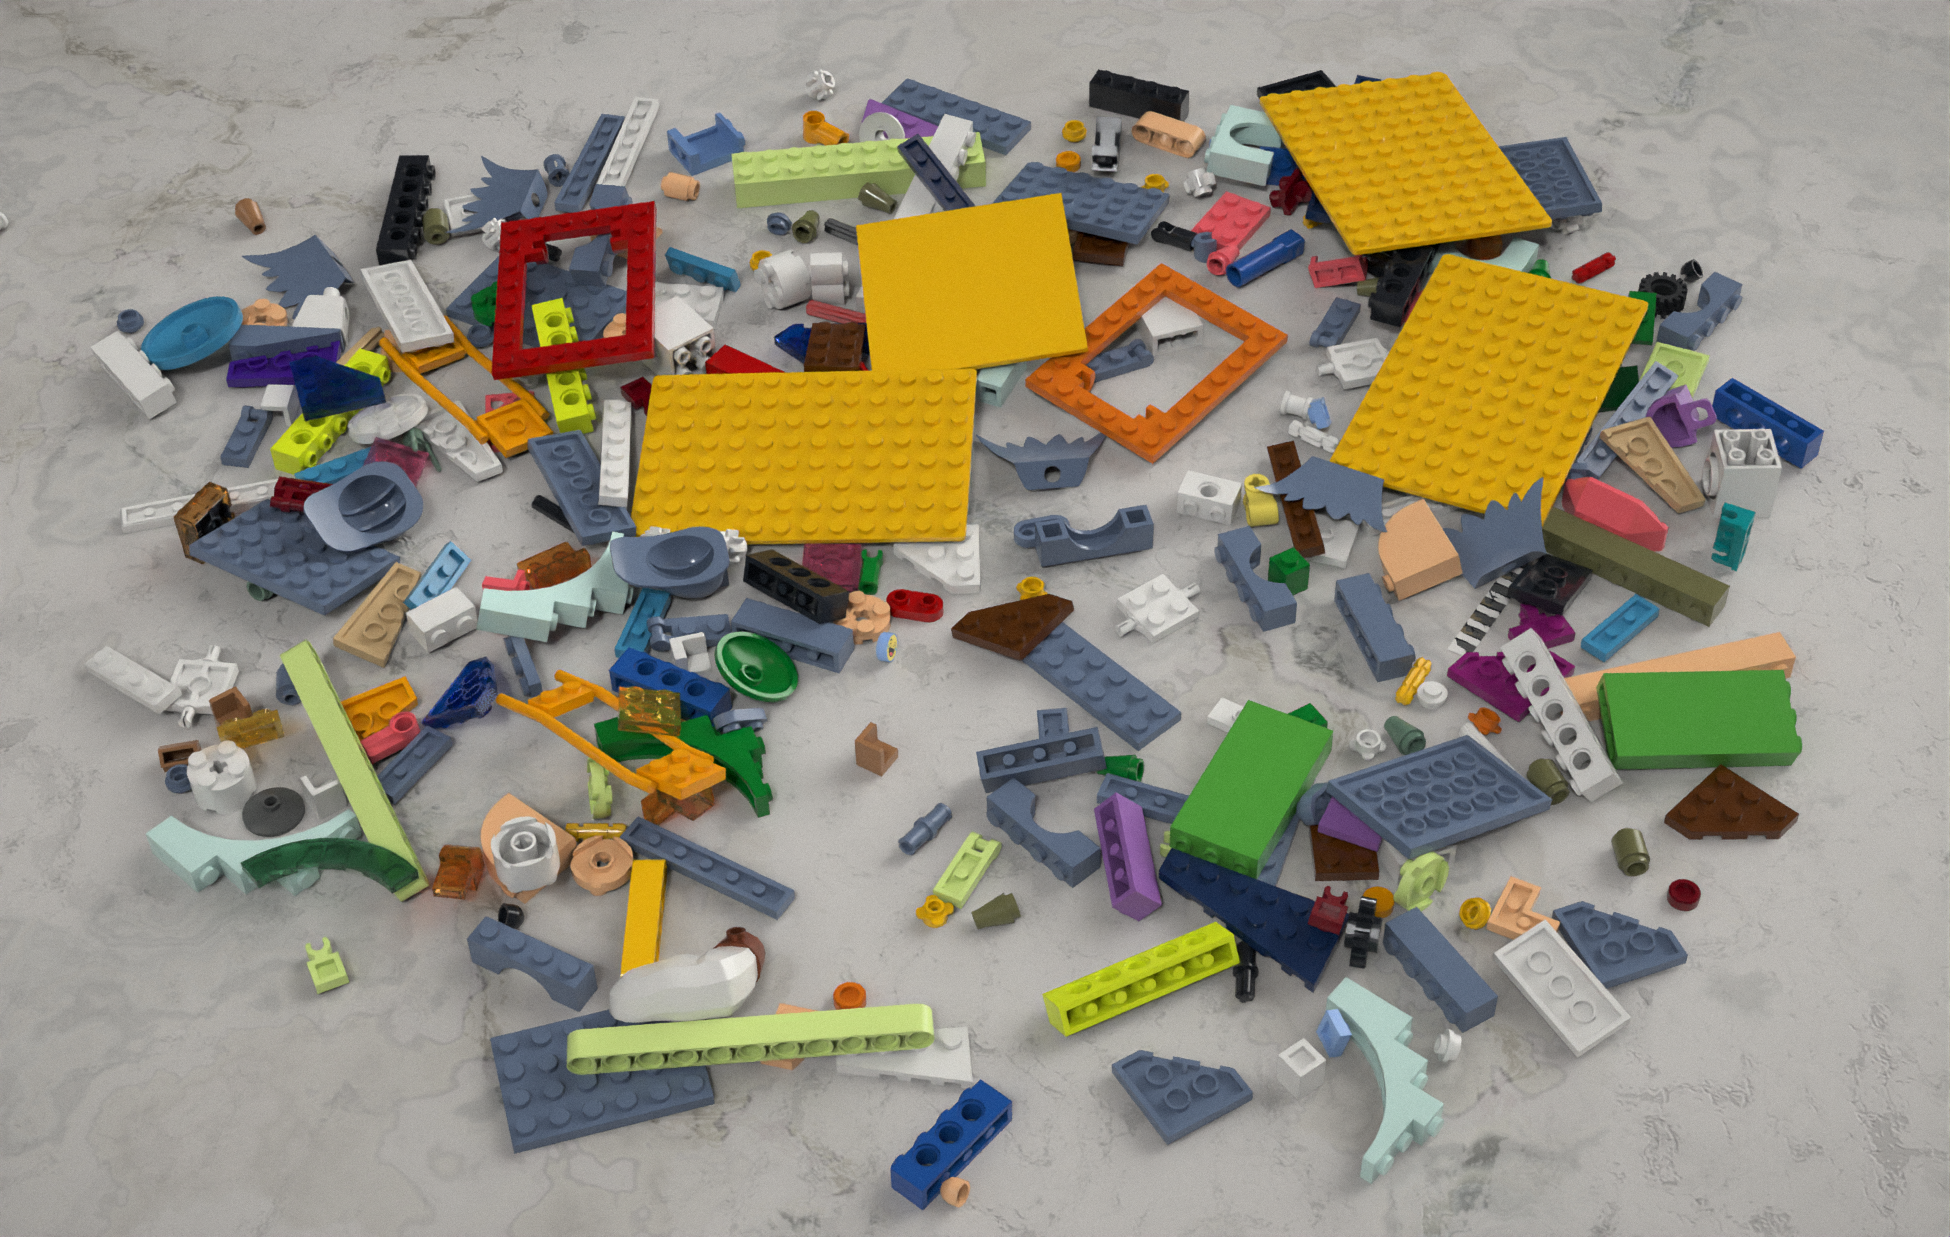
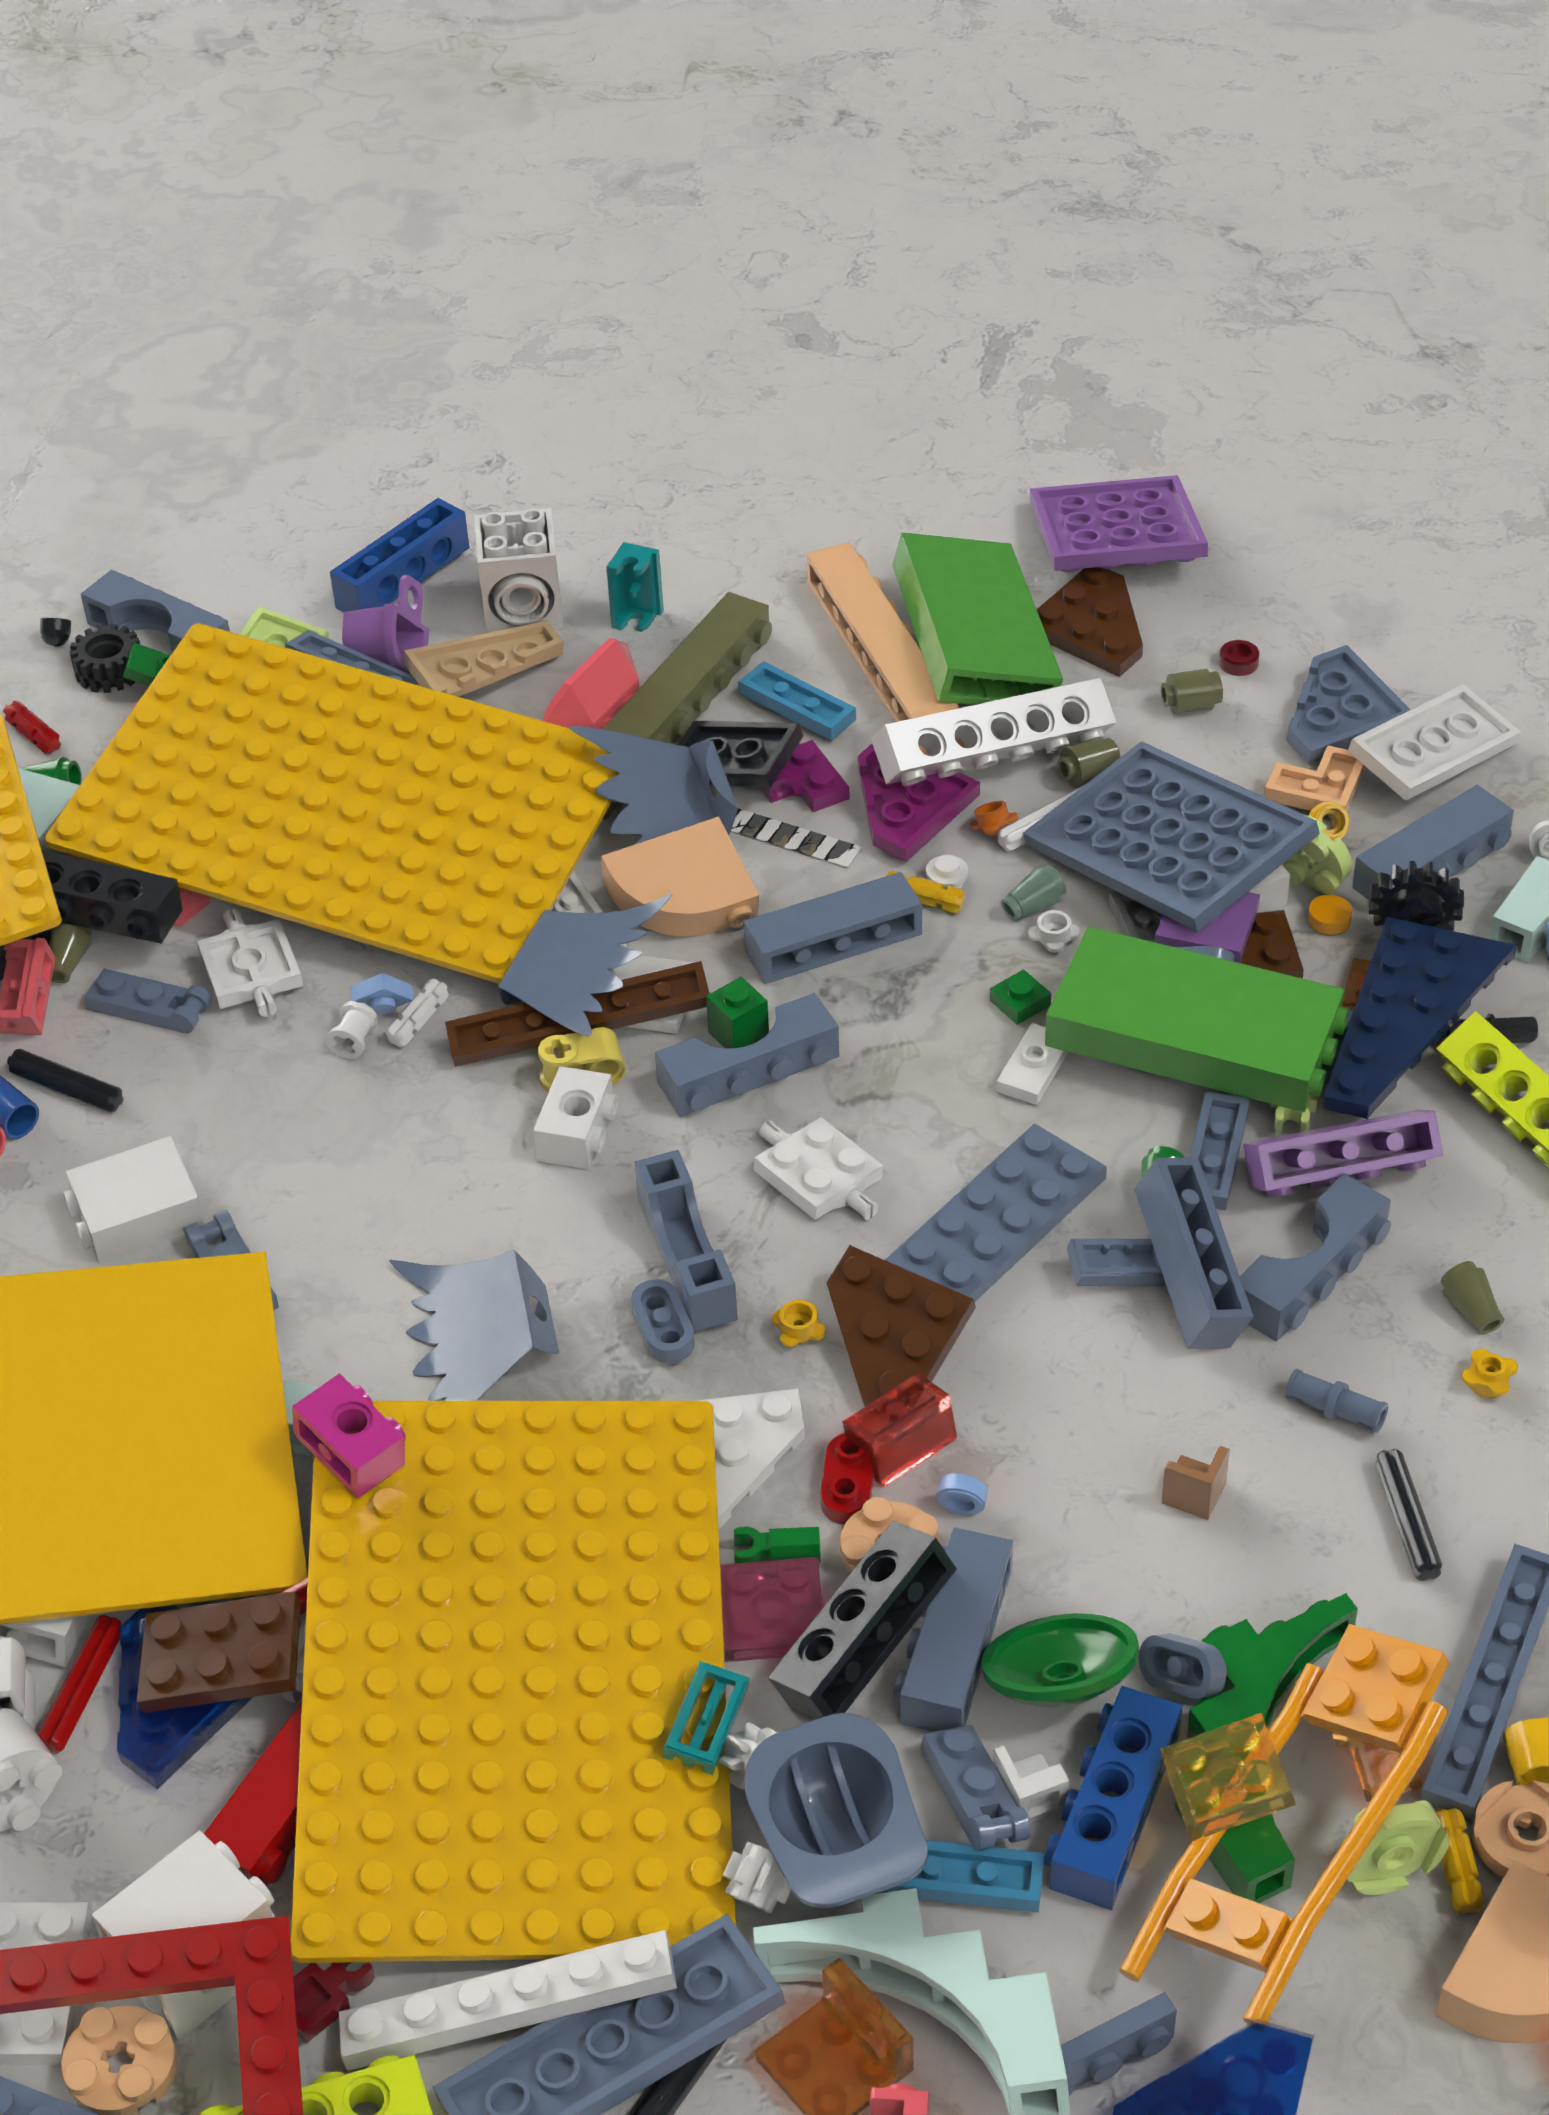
camera: 95 degrees left, 0 degrees up
(751, 528) = (692, 1753): none -> teal tile
(834, 852) = (1408, 1514): none -> black axle
(935, 620) = (903, 1427): none -> clear red panel
(938, 370) = (358, 1458): none -> dark pink brick
(966, 869) = (1399, 1341): yellowish green plate -> none
(1158, 431) = (310, 1319): orange plate -> none
(1271, 293) = (65, 1080): none -> black axle
(1329, 911) = (1413, 918): dark red plate -> none
(1842, 828) = (1118, 523): none -> medium lavender plate

